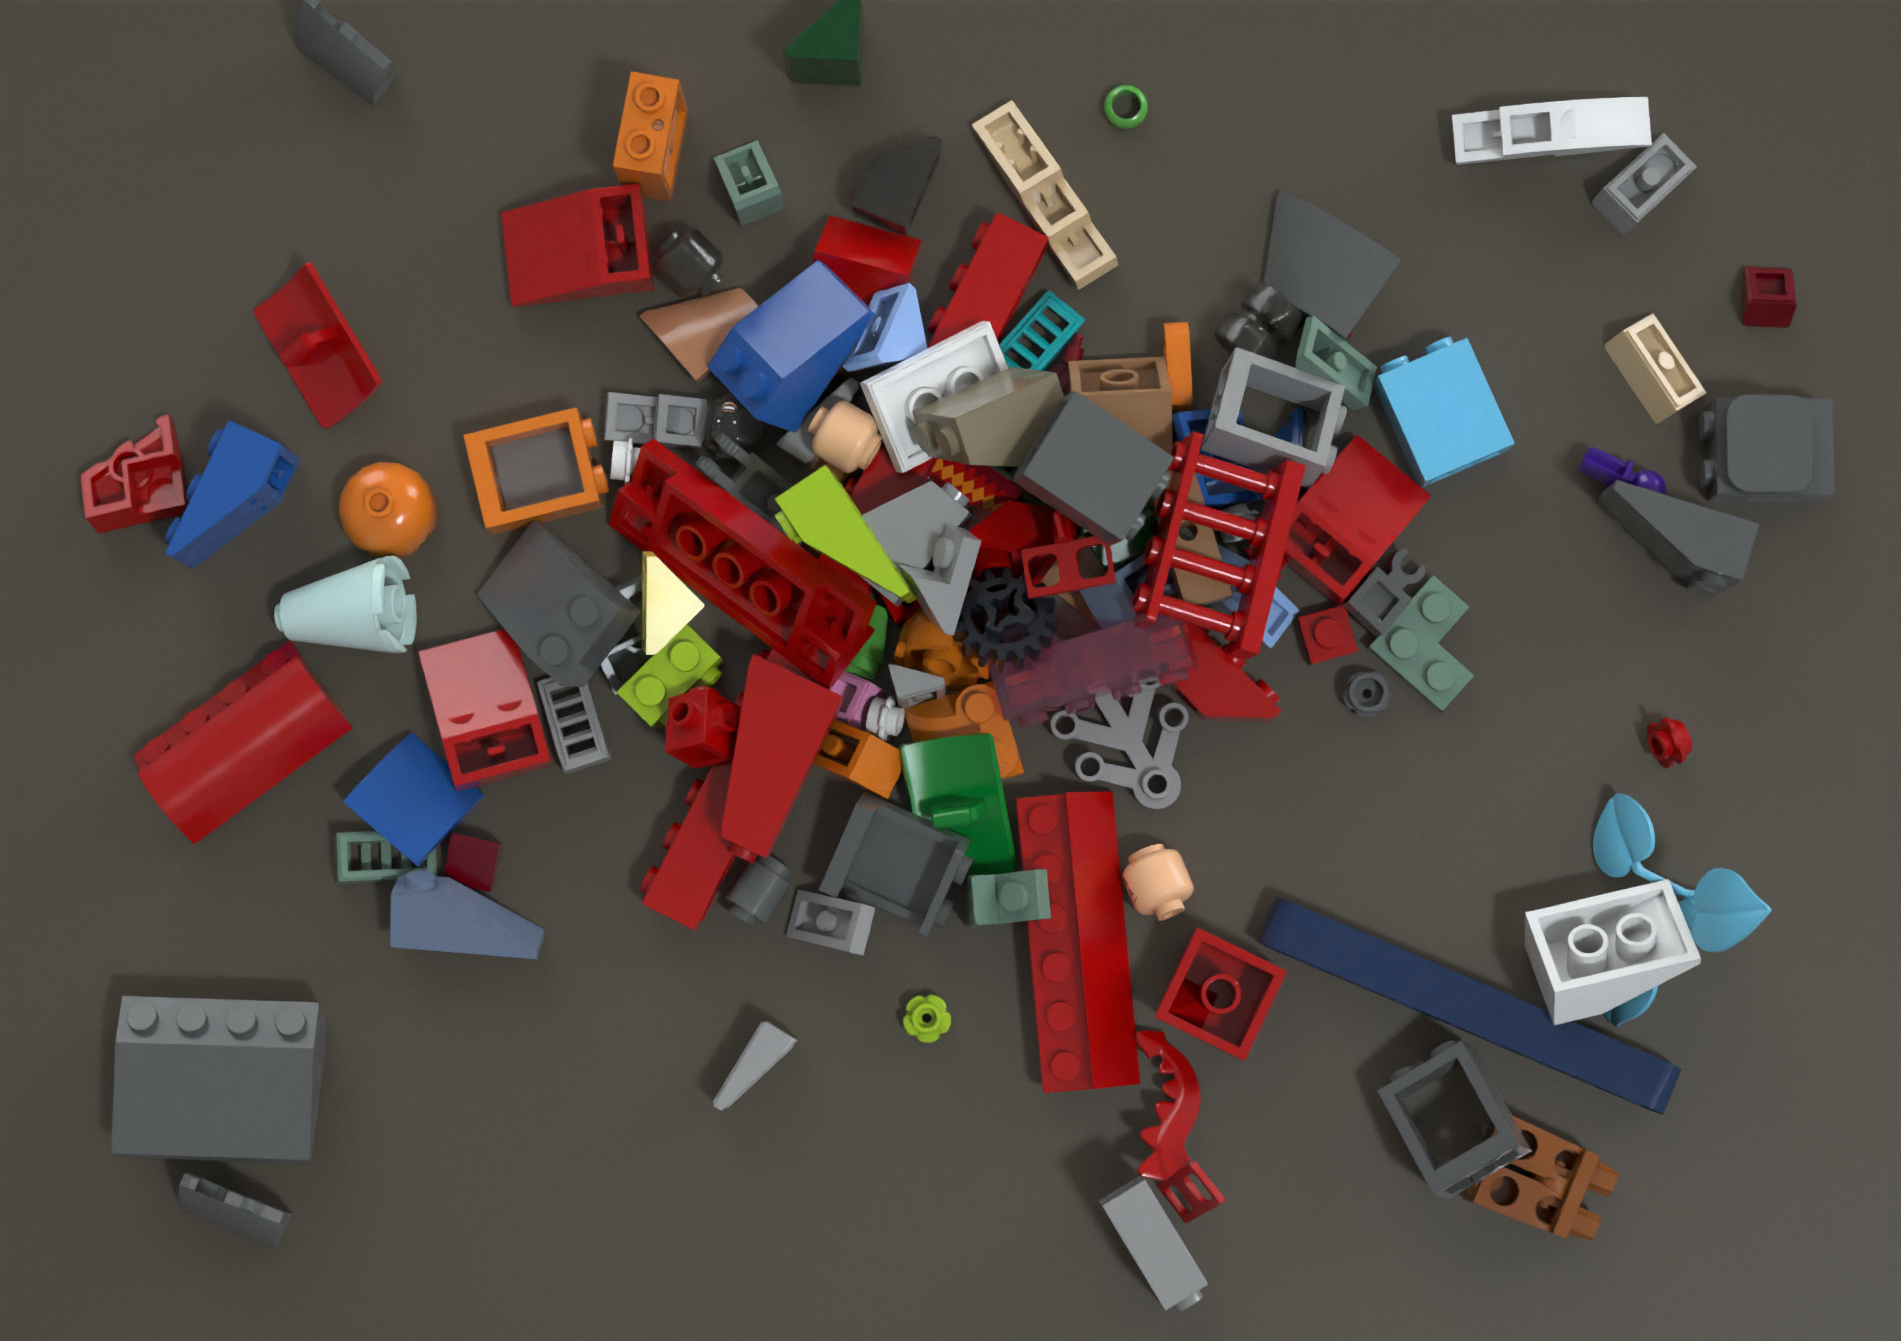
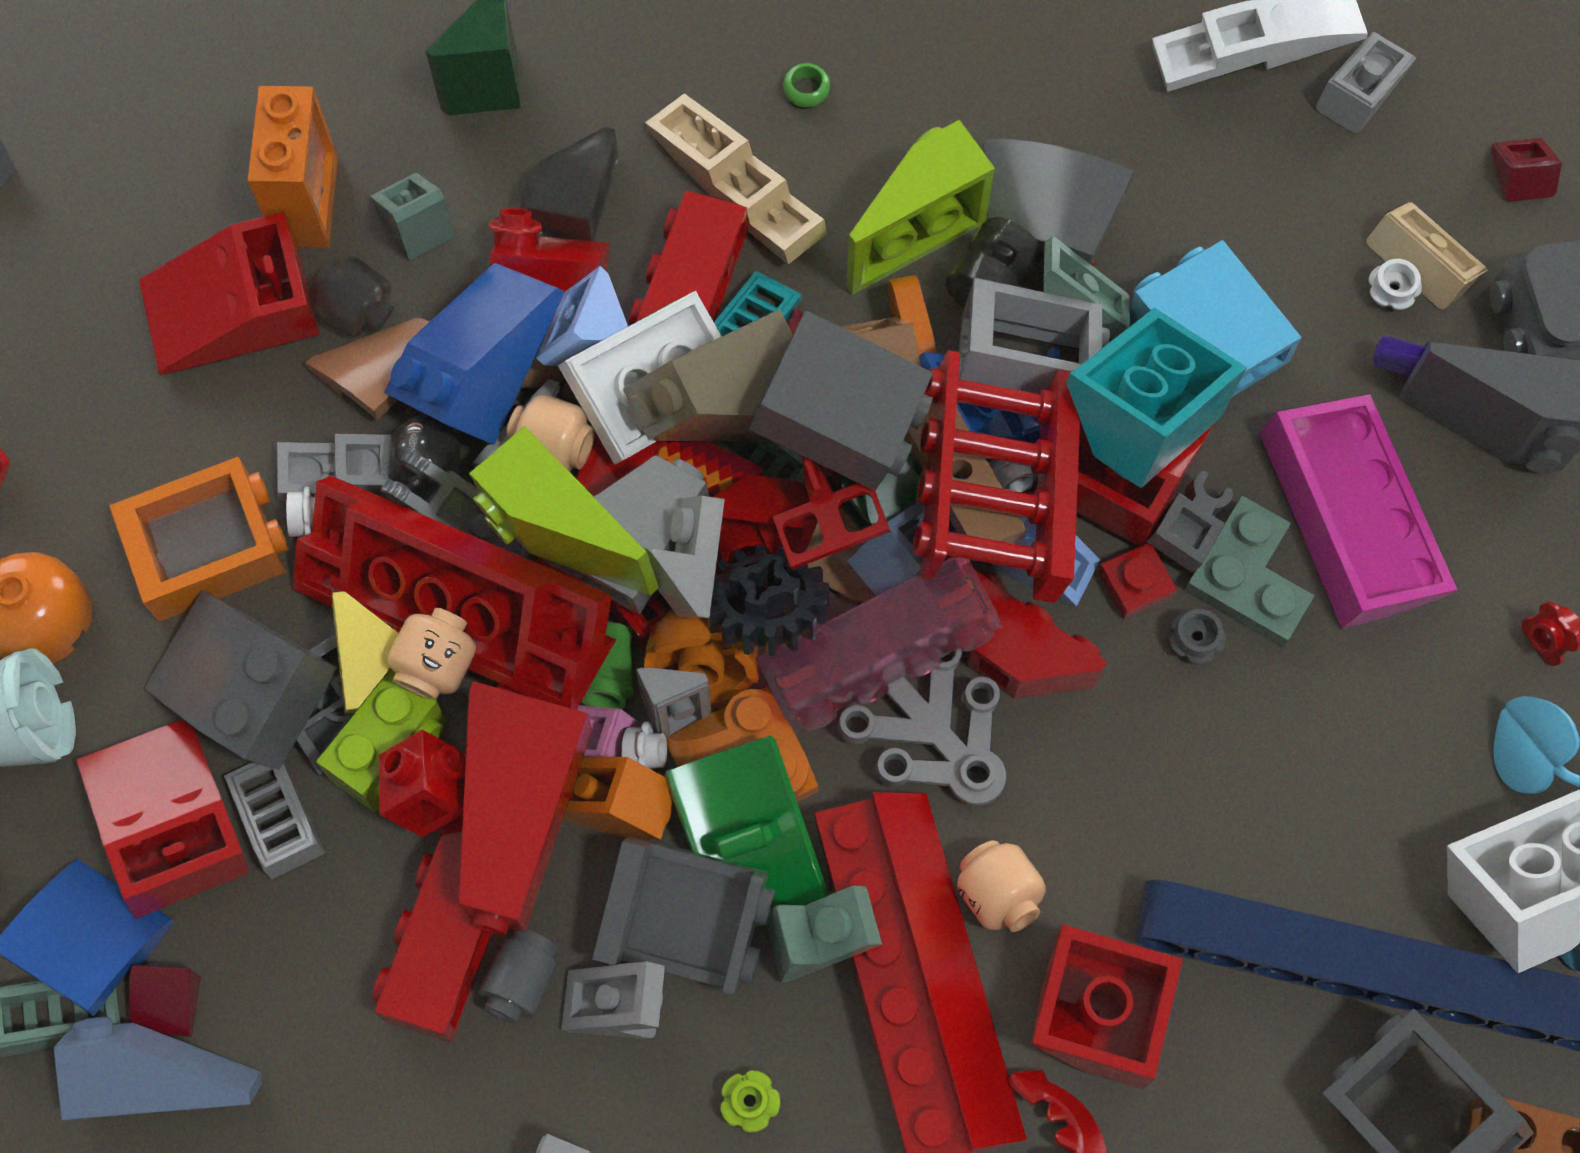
camera: 15 degrees left, 15 degrees down
(722, 622) = (431, 654): none -> light nougat head
(839, 224) = (515, 229): none -> red plate
(1213, 255) = (924, 205): none -> lime slope
(1364, 488) = (1151, 395): none -> teal slope
(1530, 601) = (1356, 510): none -> dark pink slope
(1619, 384) = (1401, 274): none -> white plate

